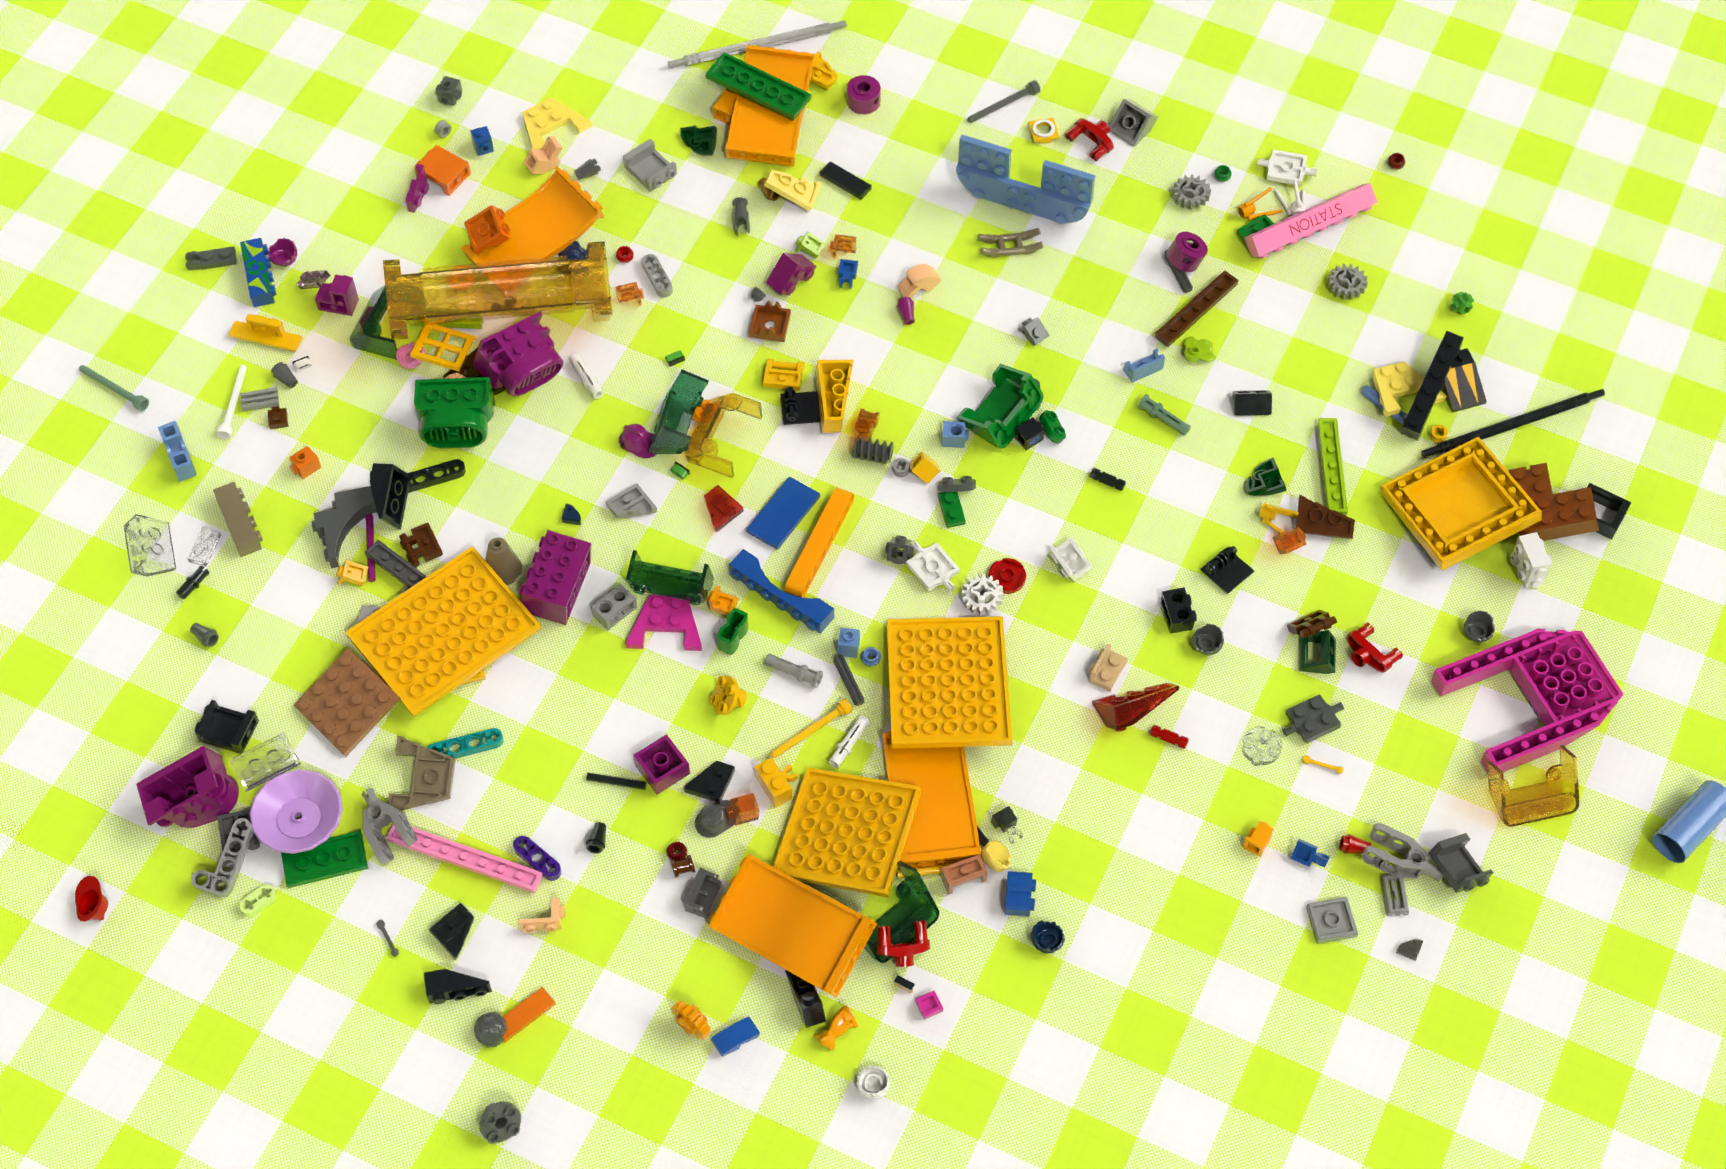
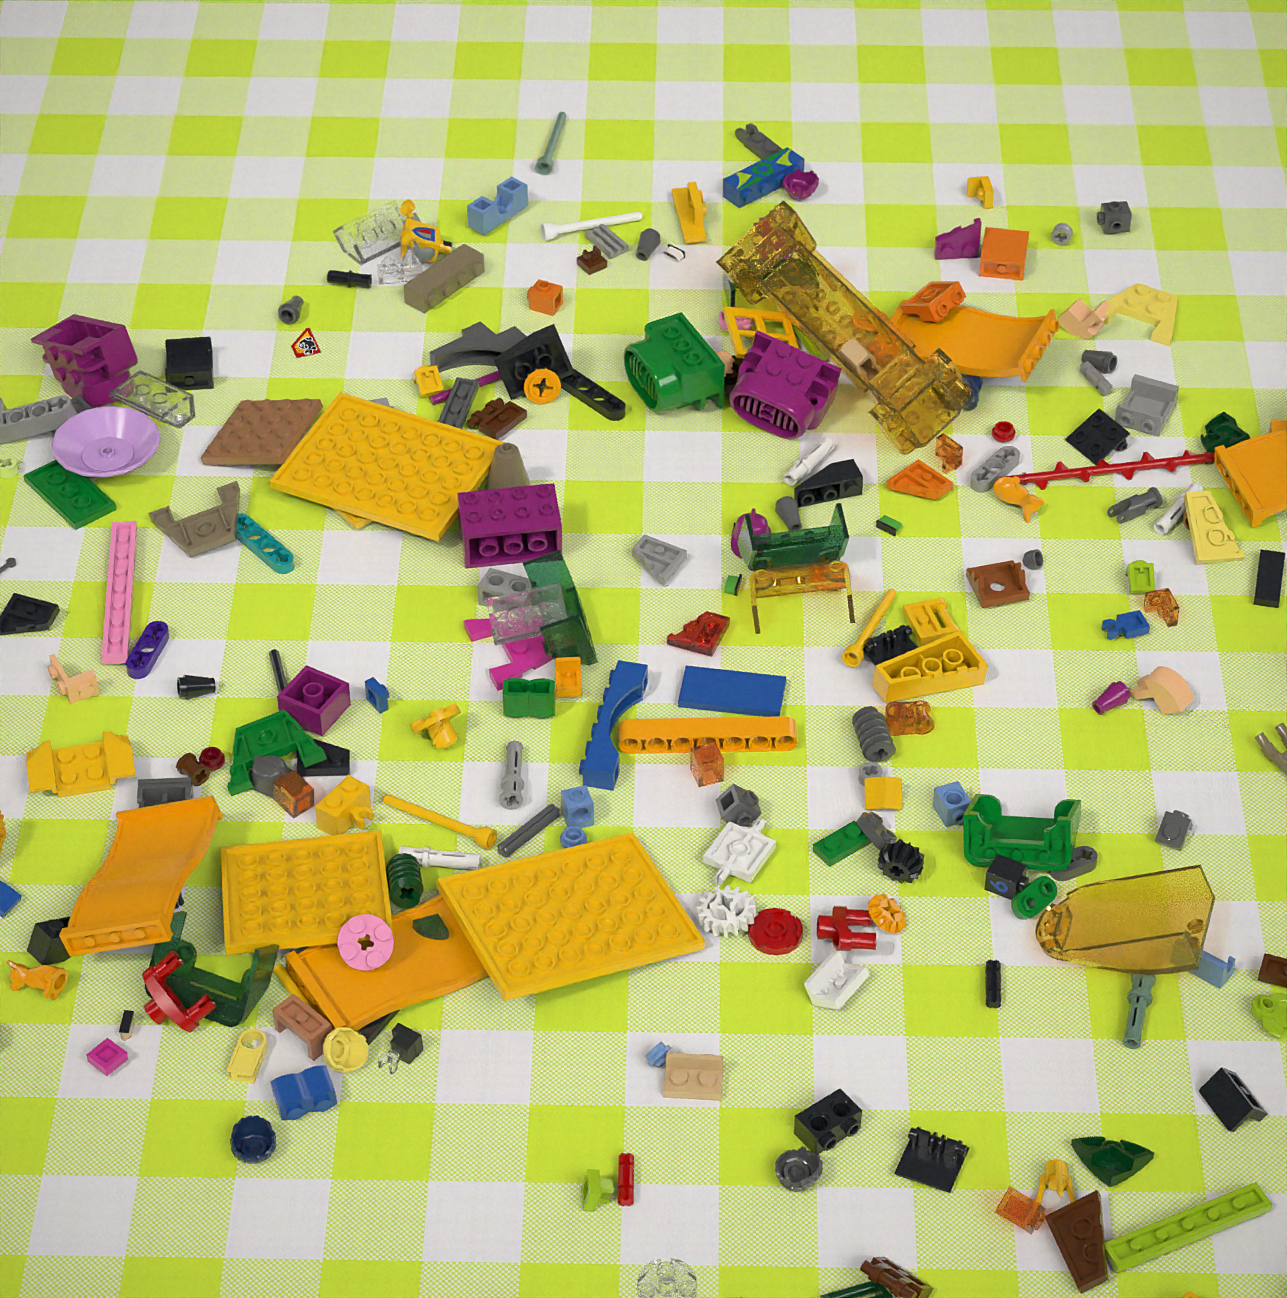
camera: 65 degrees right, 15 degrees down
(183, 517) = (421, 237): none -> torso
(247, 641) = (305, 344): none -> sticker
(365, 149) = (982, 189): none -> yellow bracket
(378, 816) = (131, 506): light grey piece -> none
(410, 502) = (549, 393): none -> light orange gear
(482, 140) = (1068, 266): blue brick -> none
(527, 297) = (859, 359): none -> tan brick
(571, 515) = (612, 519): dark blue tile -> none
(602, 180) = (1095, 378): none -> light grey axle
(619, 367) = (831, 483): none -> black slope
(633, 409) = (788, 512): none -> dark grey cone
(640, 937) = (80, 767): none -> yellow piece
(646, 321) = (920, 481): none -> orange wing
(663, 205) = (1098, 437): none -> black hinge
(666, 599) = (523, 612): none -> clear slope
(673, 724) = (377, 695): none -> blue plate
(682, 807) = (267, 736): none -> green wing
(692, 275) = (1012, 492): none -> light orange animal
(693, 216) = (1126, 469): none -> red plant
(754, 190) = (1178, 509): none -> white pin
(789, 271) = (1083, 566): magenta brick -> none
(792, 429) = (854, 653): none -> yellow piece
(848, 553) = (707, 764): none -> clear orange brick
(863, 767) = (404, 880): none -> dark green piece
(913, 767) = (431, 927): none -> clear green tile
(933, 804) = (357, 928): none -> bright pink plate
(971, 921) = (245, 1061): none -> light yellow piece
(992, 481) = (900, 861): none -> black gear
(1028, 508) = (886, 913): none -> light orange gear
(1029, 539) = (836, 929): none -> red connector
(1082, 679) = (657, 1054): none -> medium blue plate
(1110, 388) = (1132, 923): none -> clear yellow windscreen
(1127, 710) = (636, 1111): clear red wedge -> none
(1173, 756) = (595, 1190): none -> lime tile

